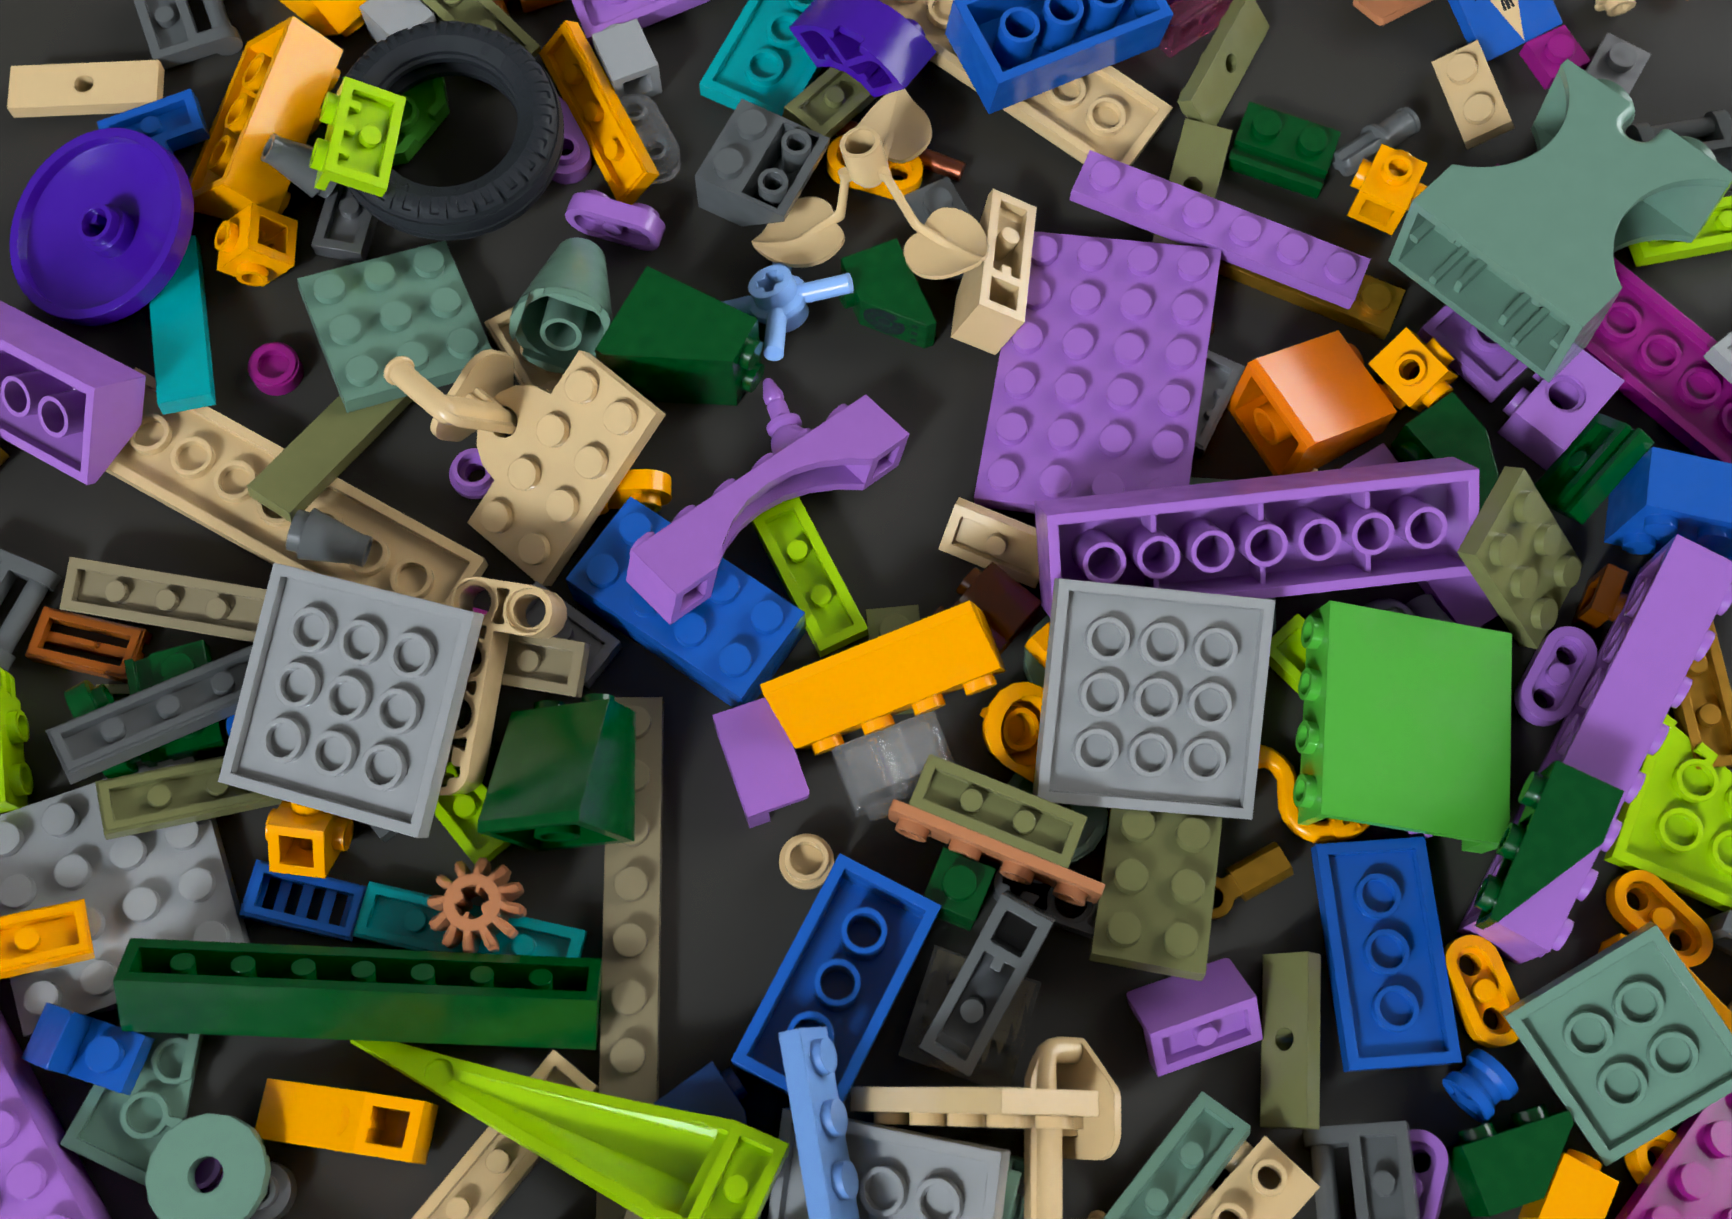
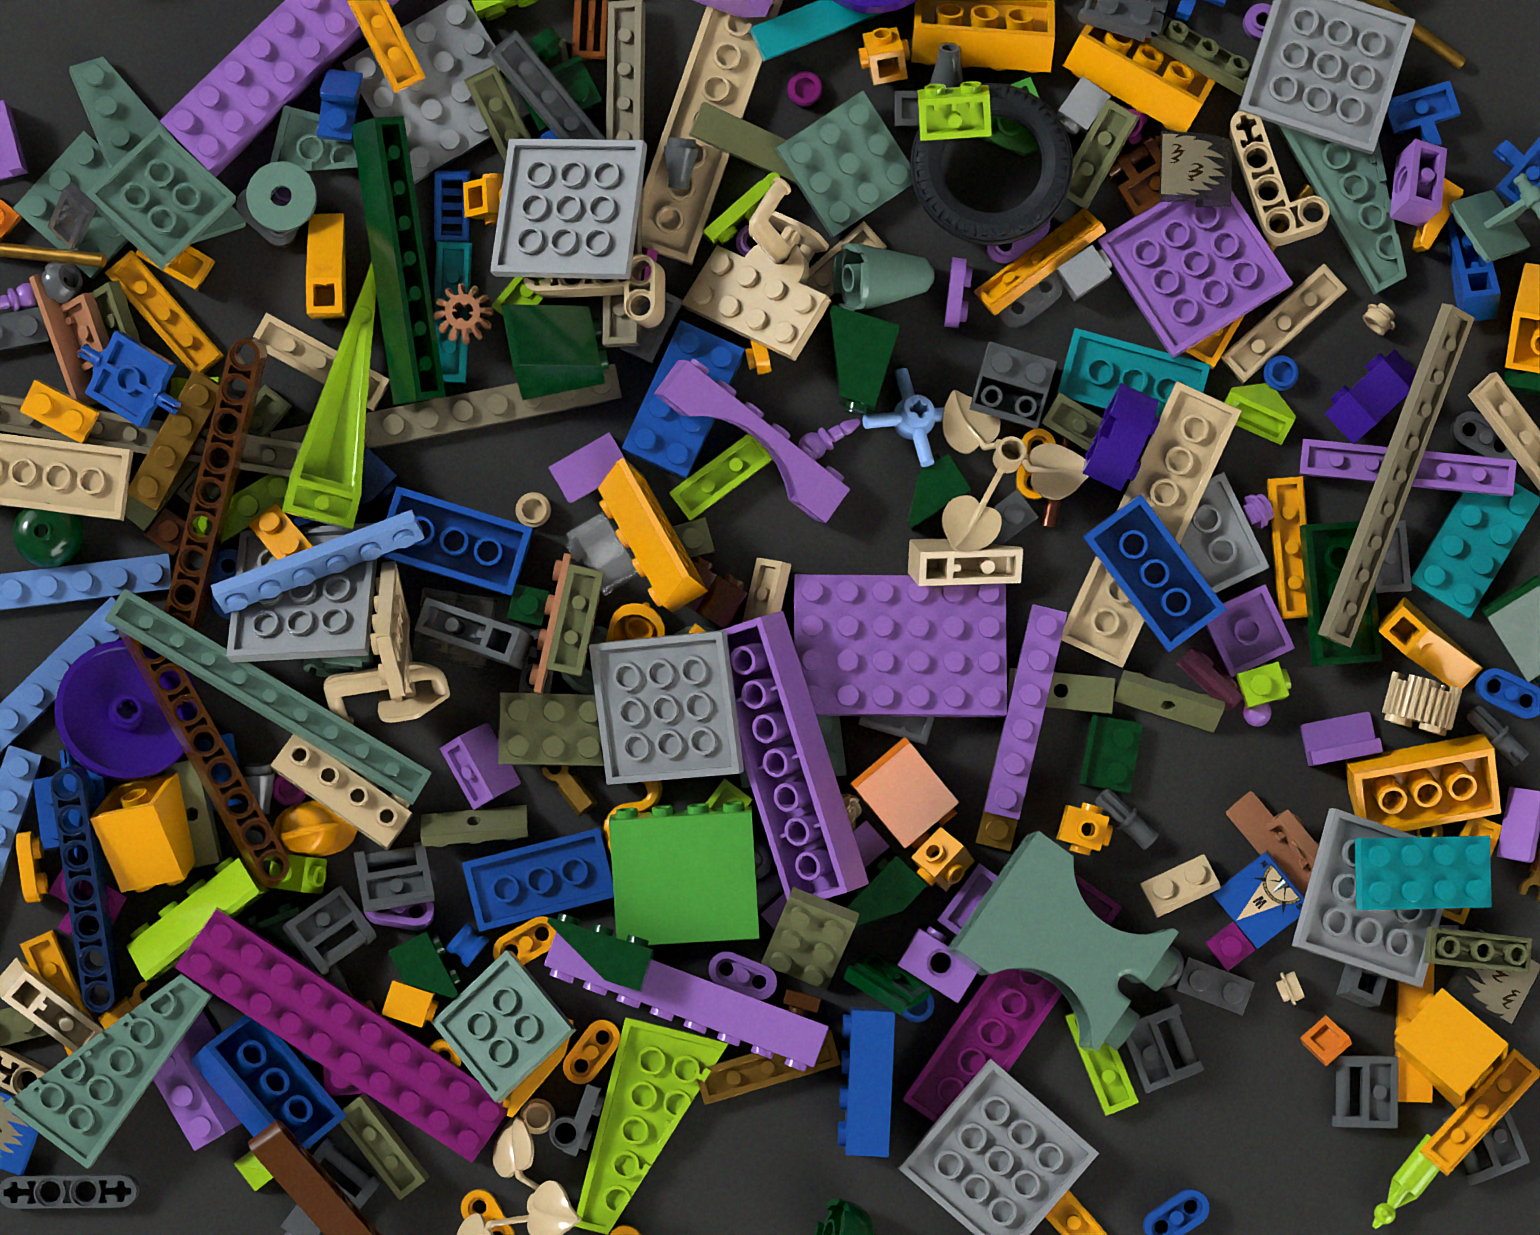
camera: 80 degrees right, 15 degrees up
(423, 468) = (725, 225): none -> lime hinge

